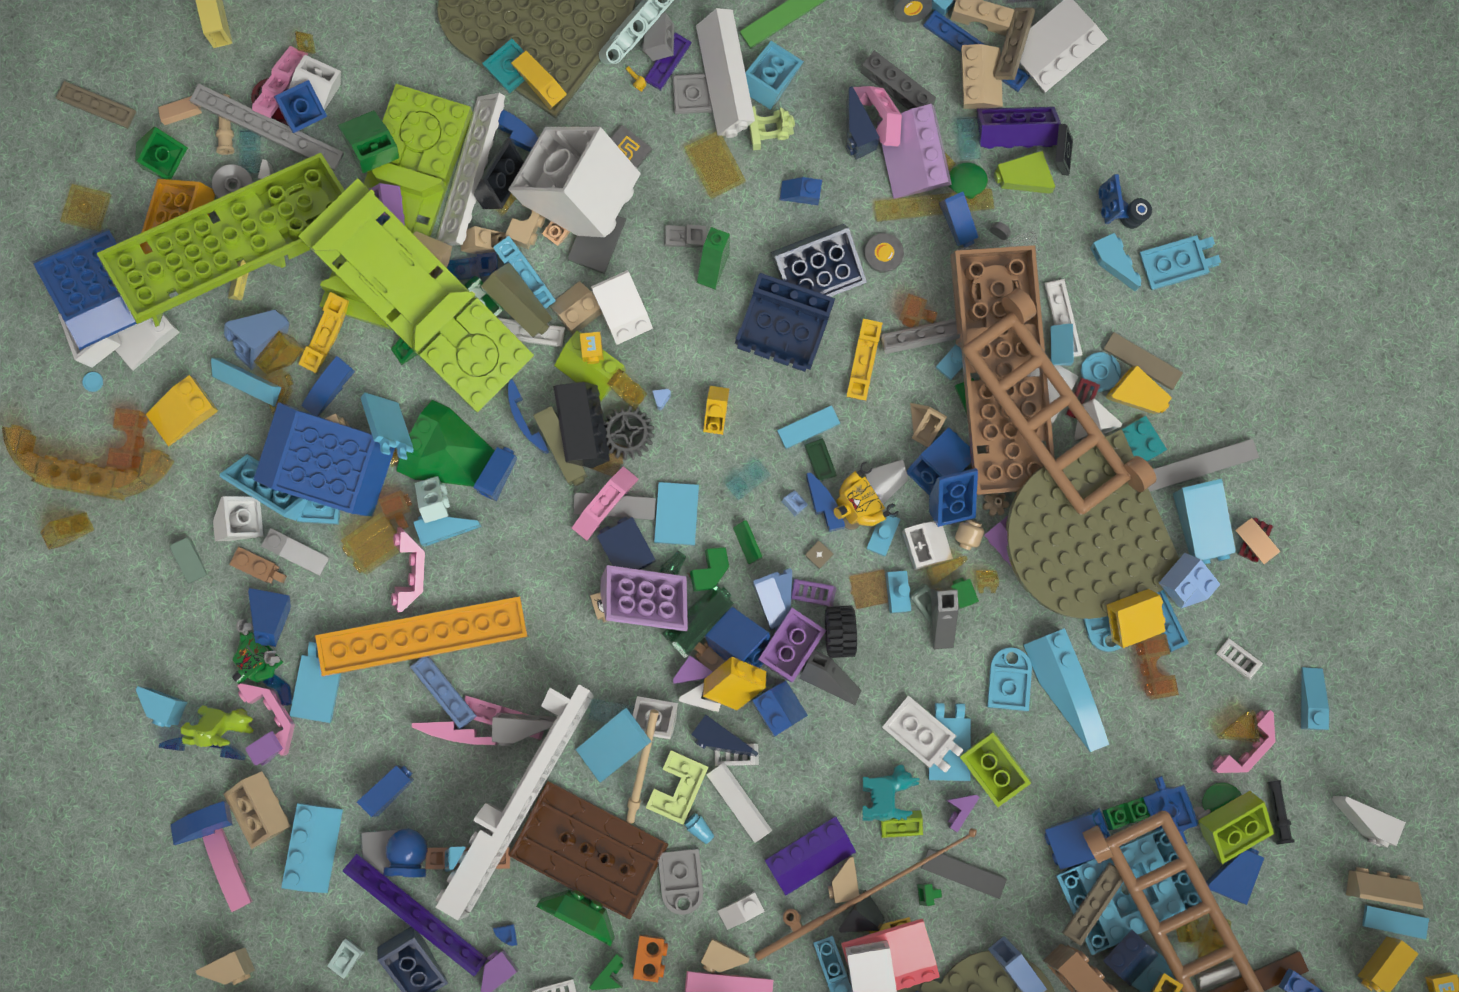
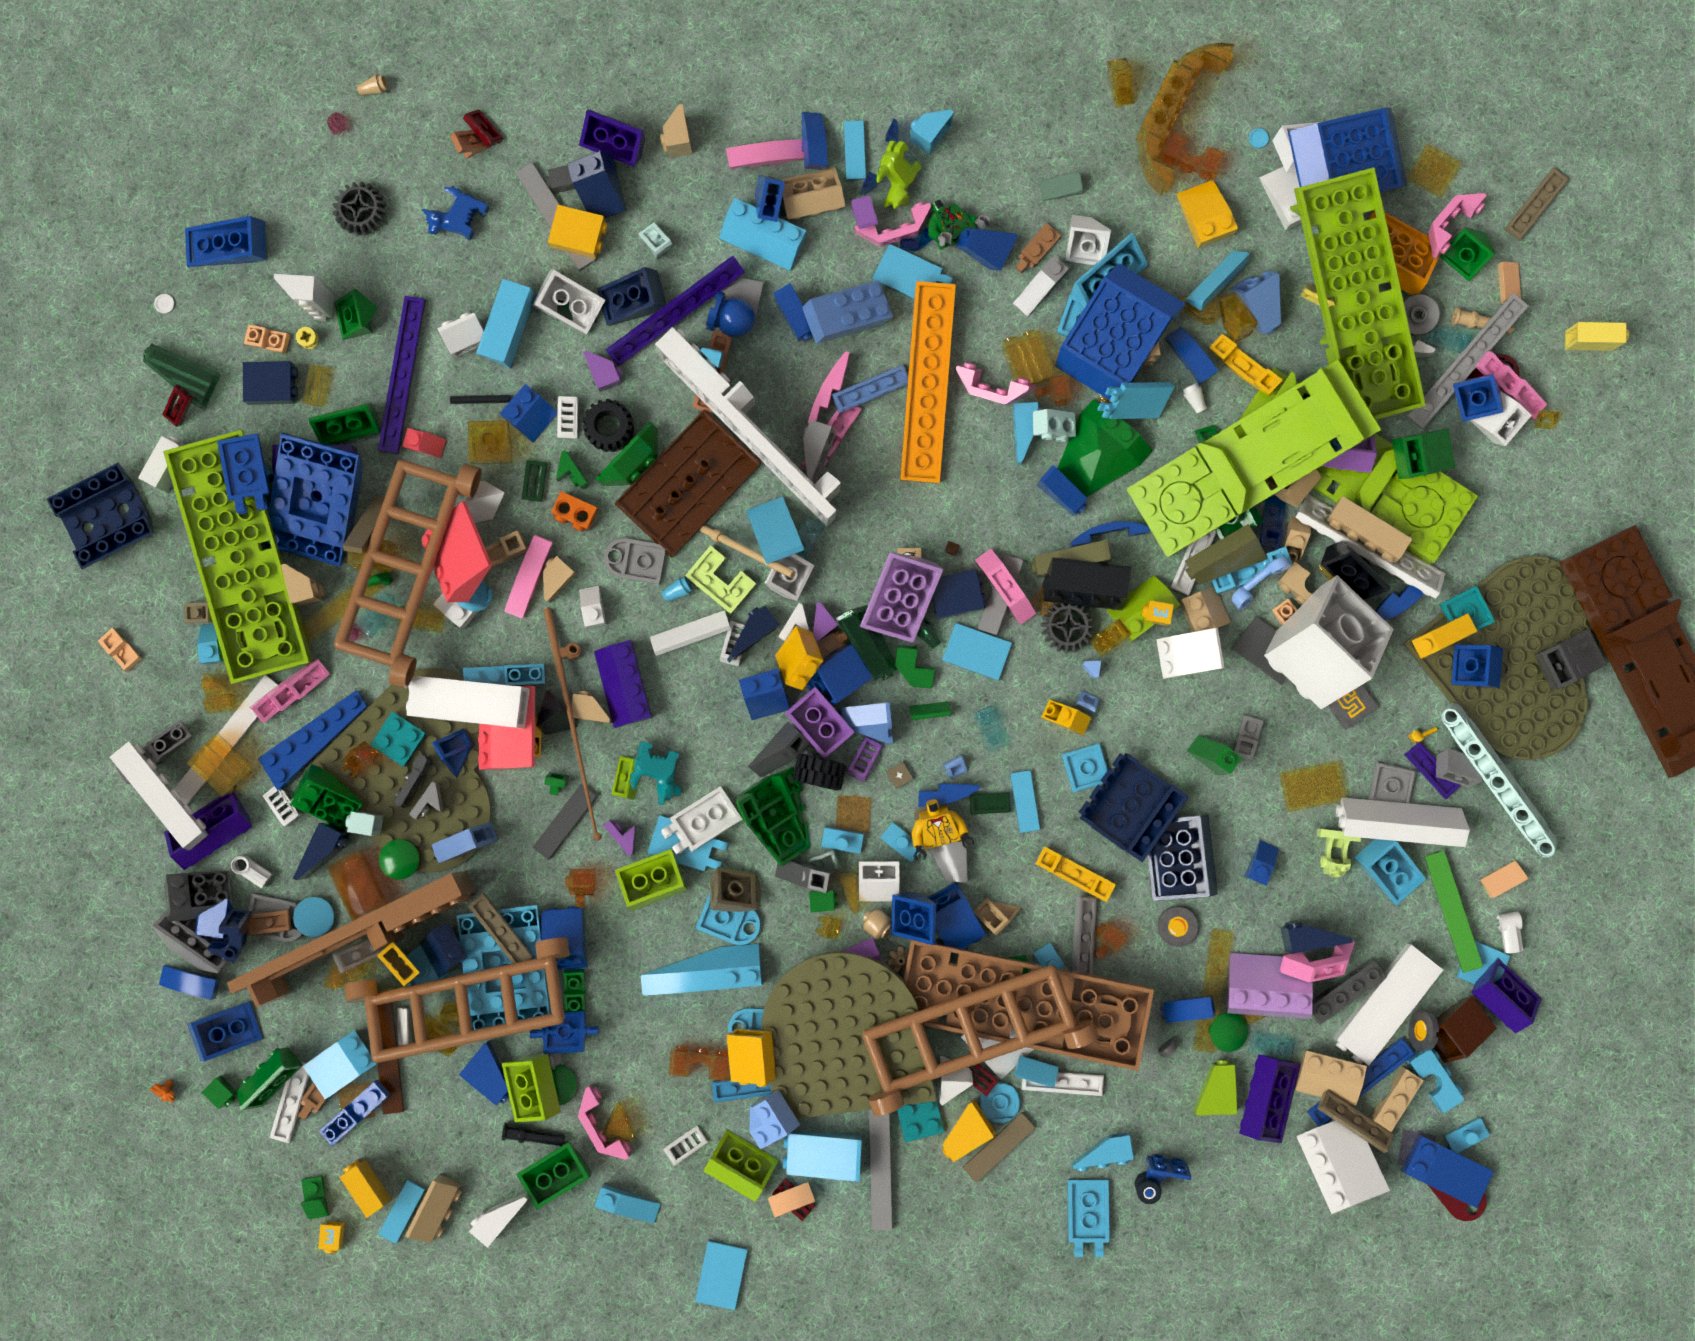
camera: 115 degrees right, 5 degrees up
(112, 171) = (1466, 204): none -> bright pink slope
(201, 778) = (854, 150): none -> medium azure tile
(272, 851) = (768, 197): none -> blue slope
(367, 373) = (1195, 397): none -> white cone
(371, 736) = (847, 312): none -> medium blue brick
(456, 173) = (1368, 529): none -> tan slope
(506, 934) = (634, 389): blue tile -> none
(533, 954) = (613, 441): none -> black tyre
(550, 275) = (1243, 596): none -> light blue piece
(558, 44) = (1477, 666): none -> blue slope
(581, 566) = (952, 548): none -> reddish brown piece
(696, 394) = (1087, 702): none -> light blue slope
(758, 379) = (1085, 767): none -> medium azure tile
(895, 664) = (775, 815): none -> green wedge
(899, 44) = (1387, 1005): none -> white brick
(981, 682) = (734, 890): none -> dark tan slope
(1020, 838) = (581, 883): none -> clear orange brick
(1064, 149) = (1232, 1136): black tile -> none
(1241, 599) = (741, 1165): none -> lime slope
(1312, 778) = (554, 1175): none -> green slope
(1349, 588) = (721, 1275): none -> medium azure tile

